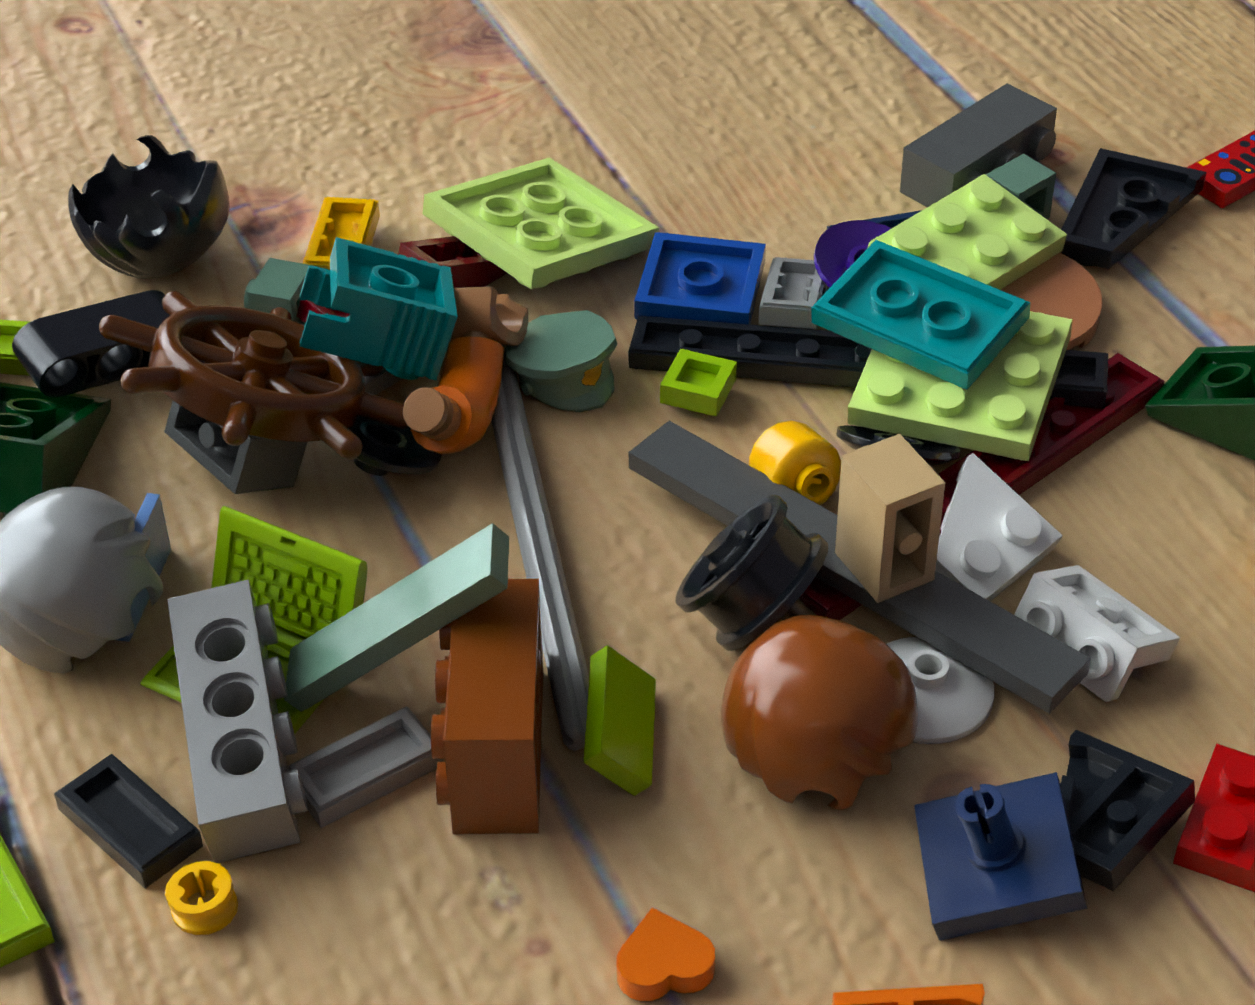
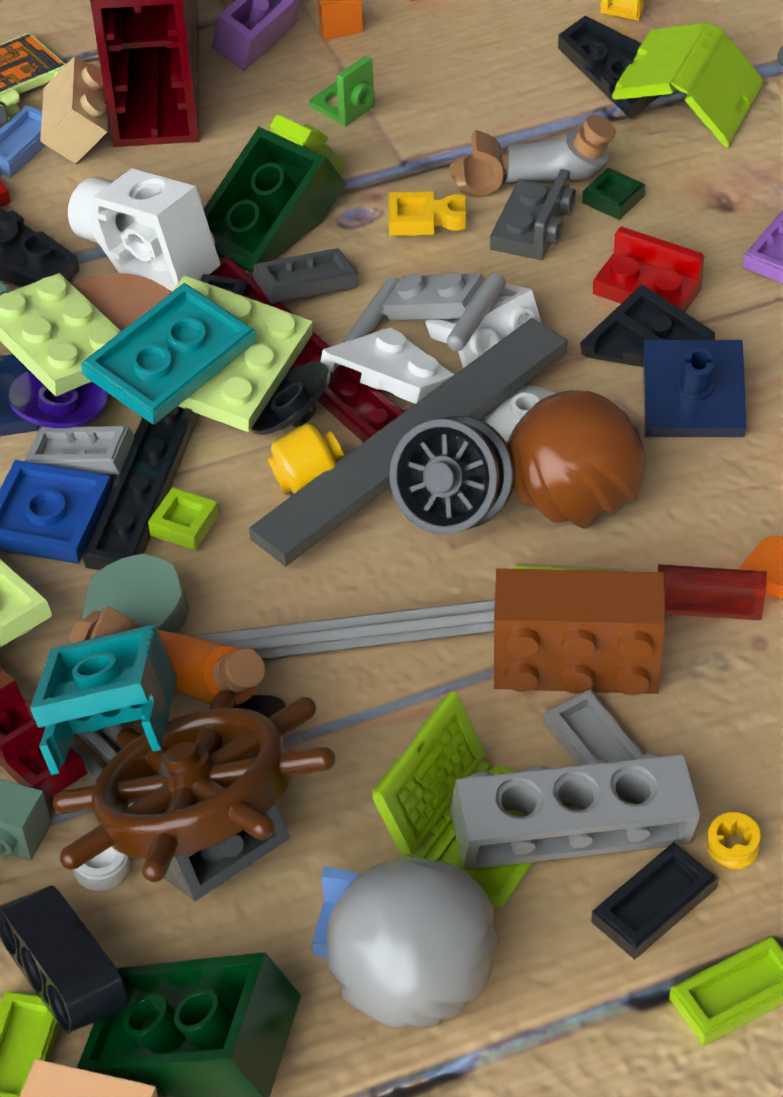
camera: 85 degrees left, 5 degrees up
(398, 617) = (516, 664): sand green tile -> none
(595, 868) = (714, 592): none -> clear red tile
(889, 517) = (431, 372): tan brick -> none
(1108, 568) = (433, 298): none -> light grey plate
(1141, 449) = (305, 275): none -> dark grey plate
(1150, 283) = (146, 226): none -> white brick

